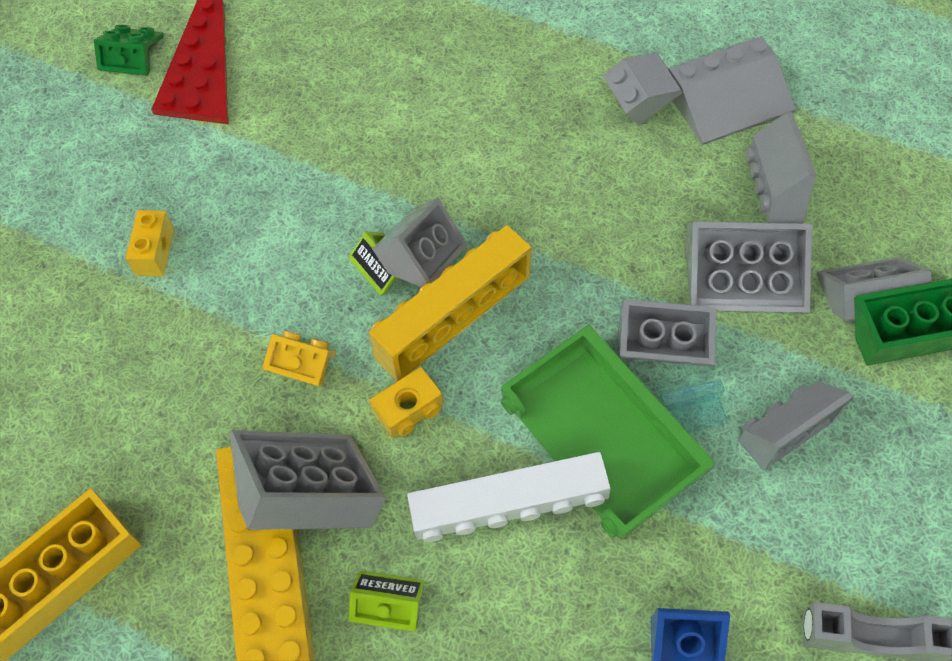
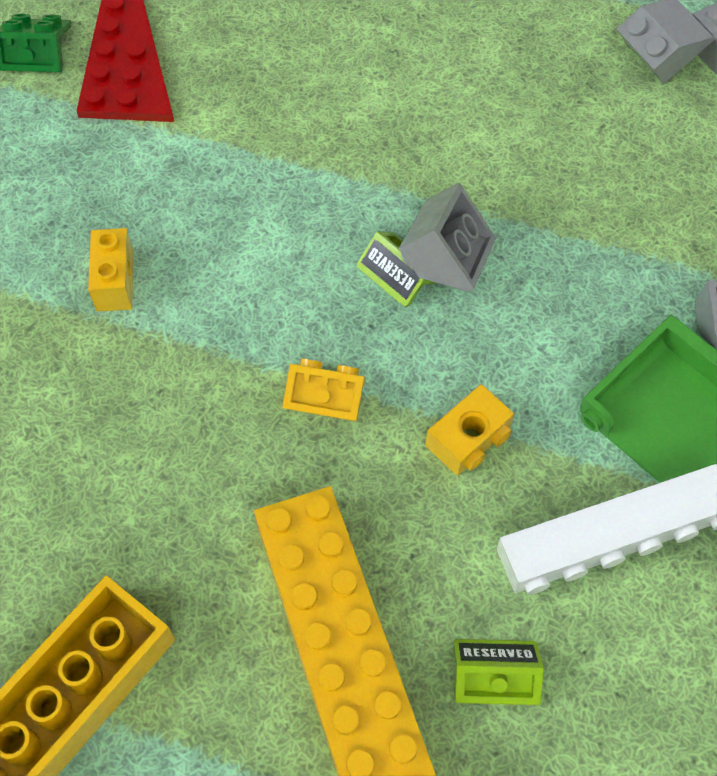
camera: 10 degrees left, 0 degrees up
(303, 481) = (374, 537): light grey slope -> none
(450, 303) = (499, 305): yellow brick -> none

